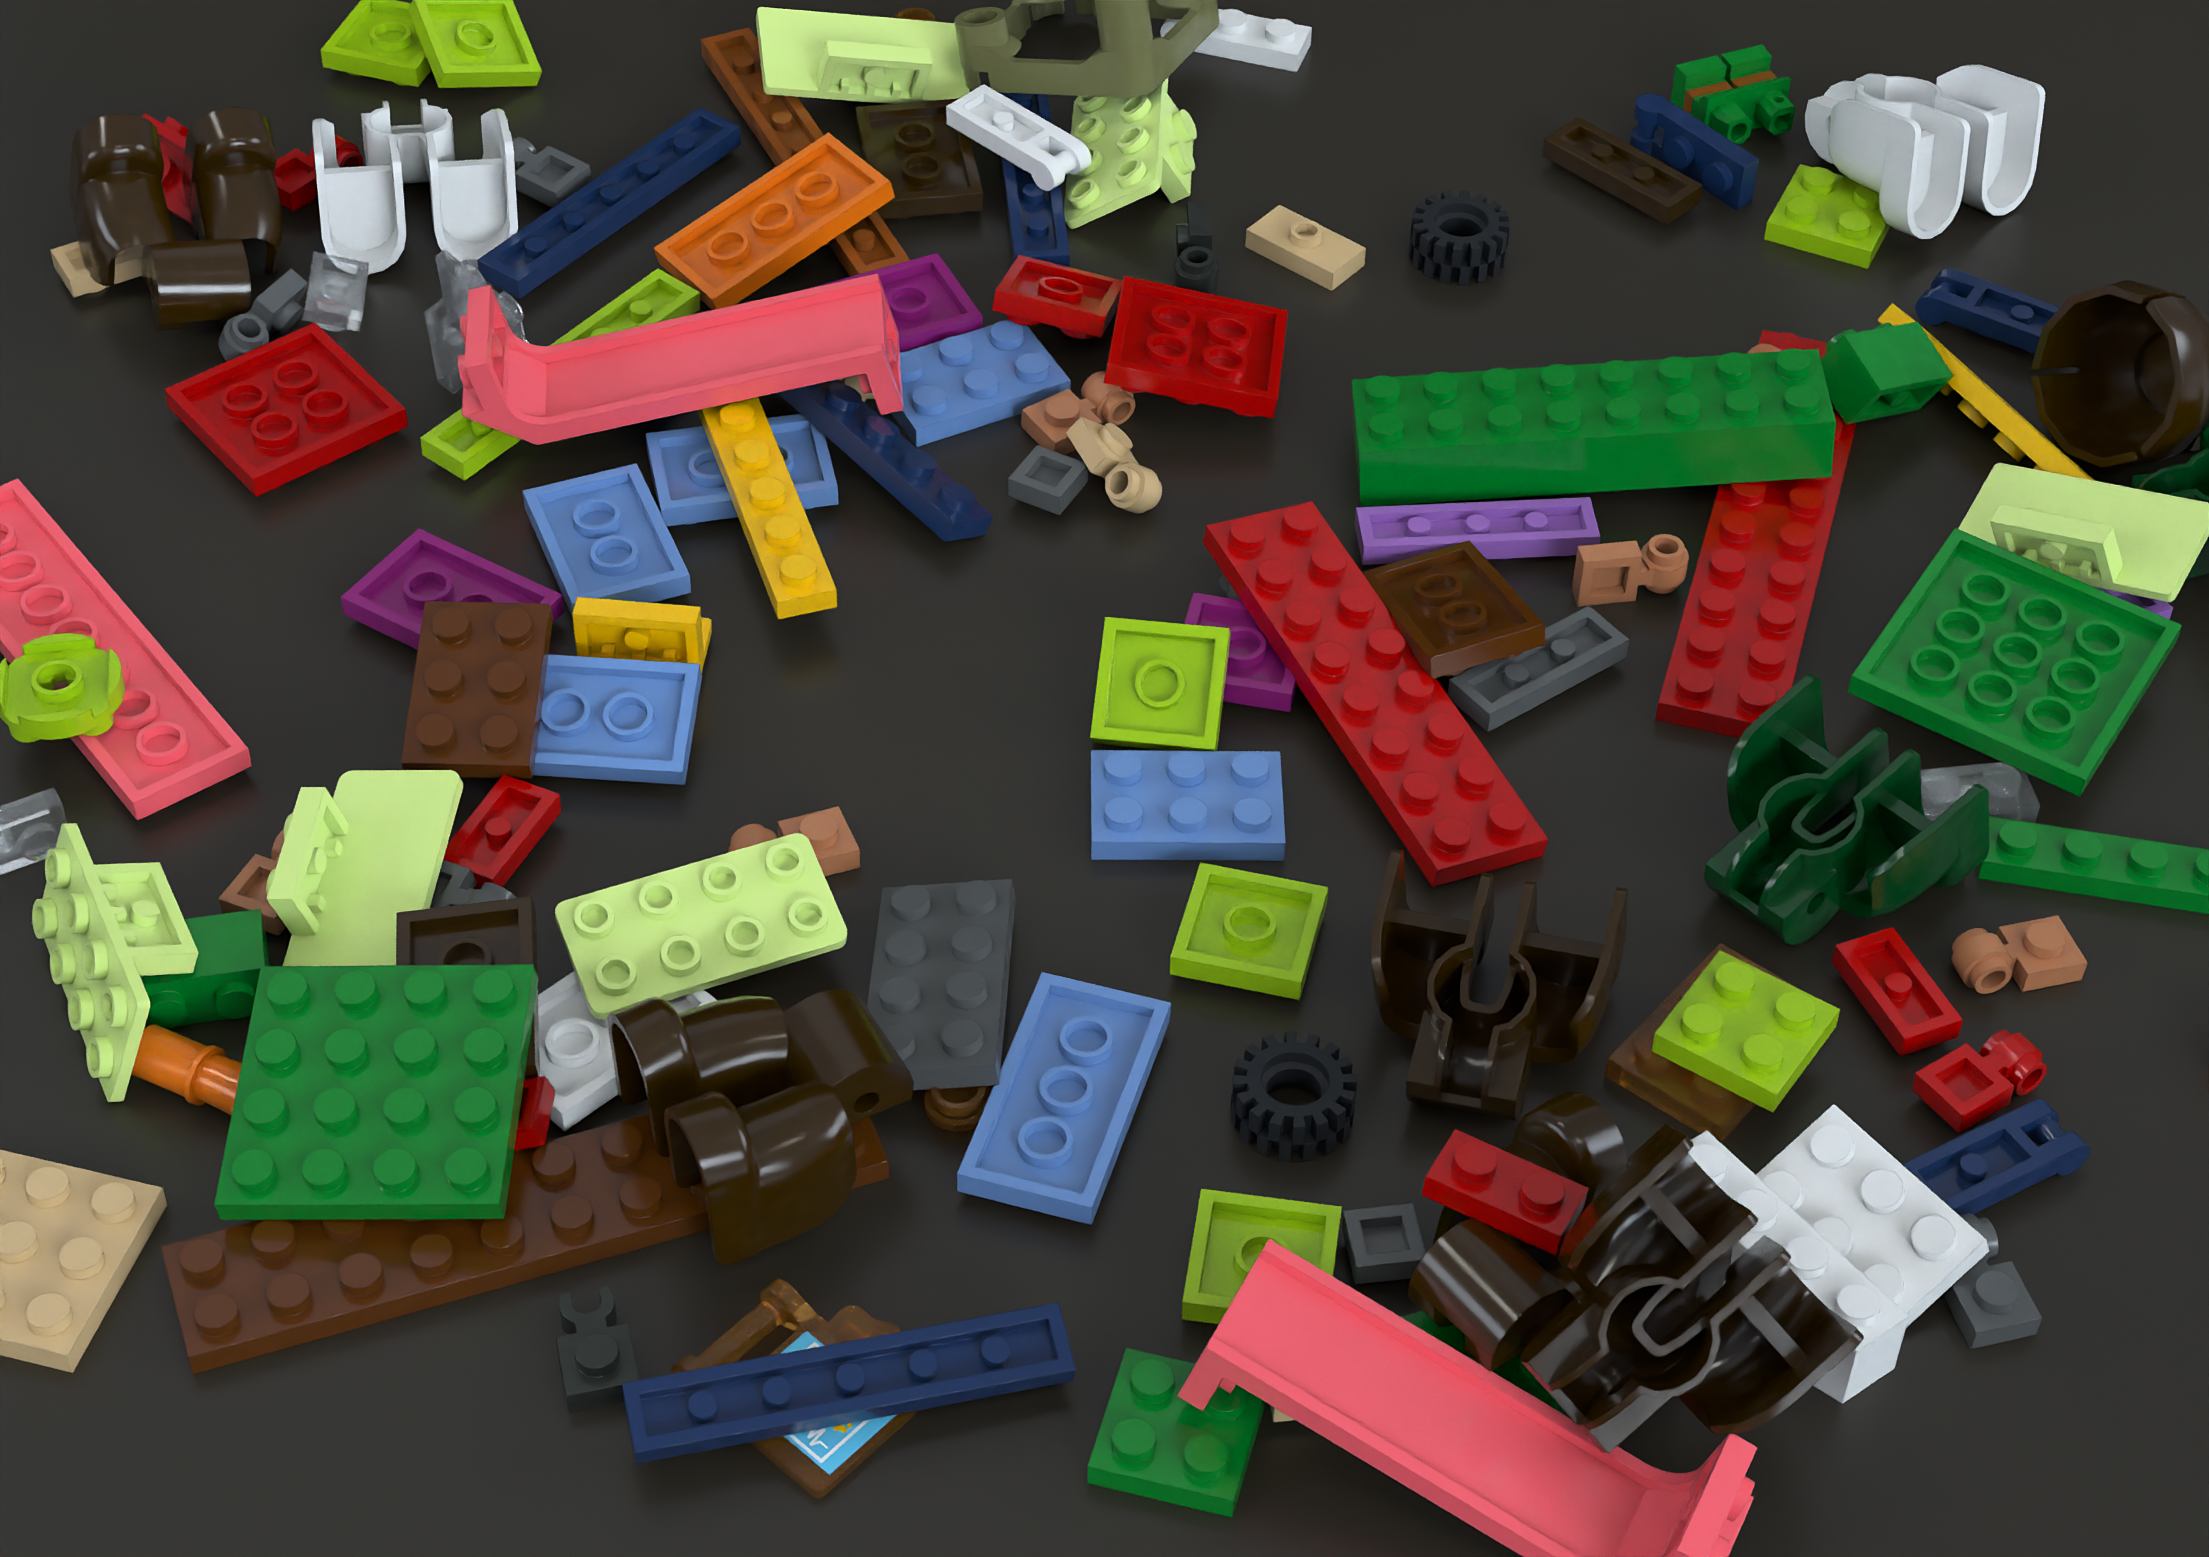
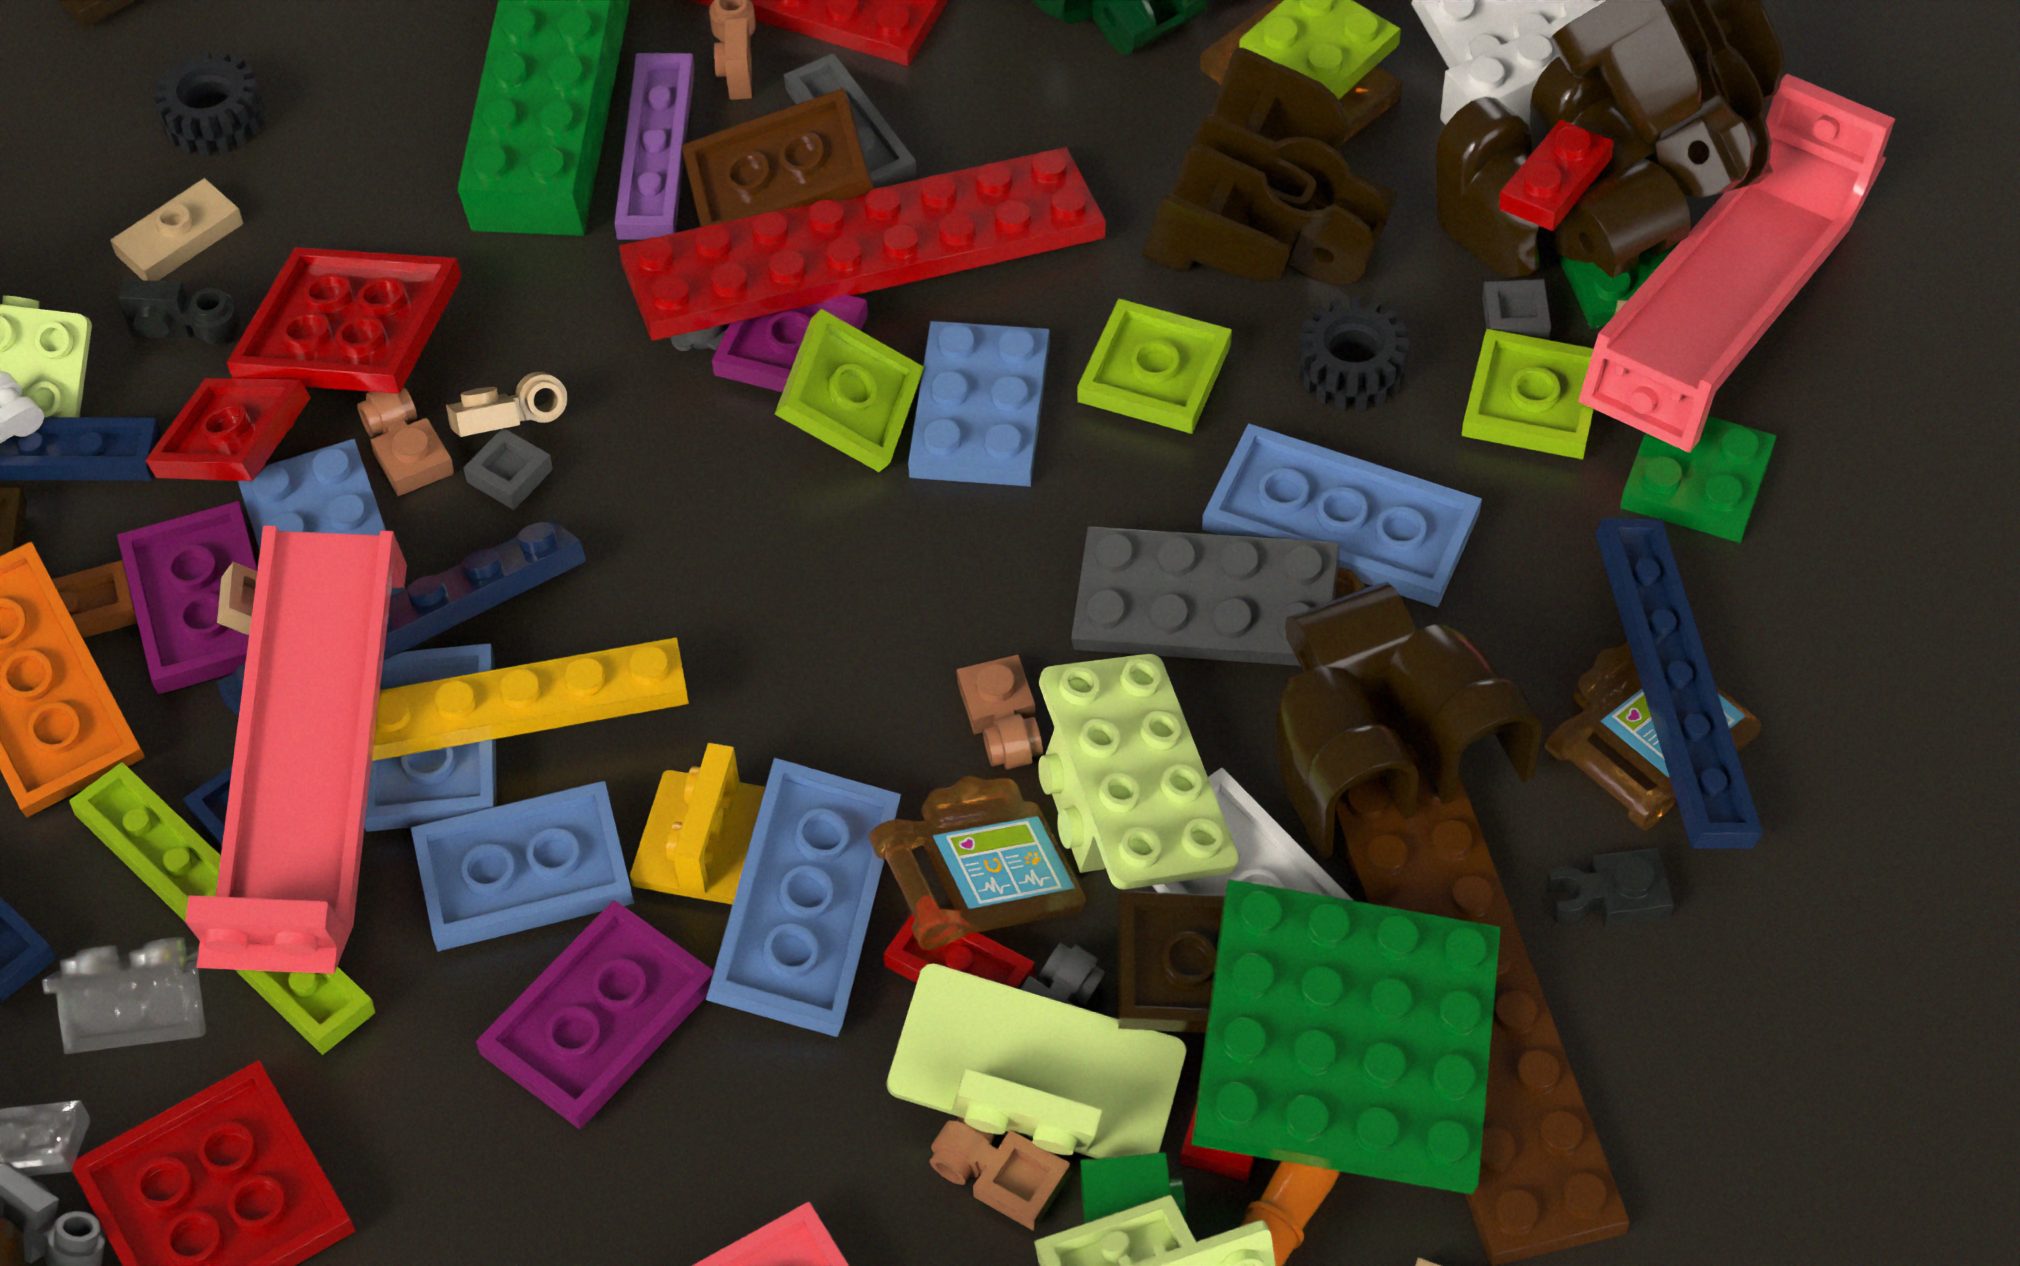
camera: 80 degrees left, 10 degrees up
(478, 688) = (777, 962): reddish brown plate -> none
(609, 834) = (989, 855): none -> clear orange piece

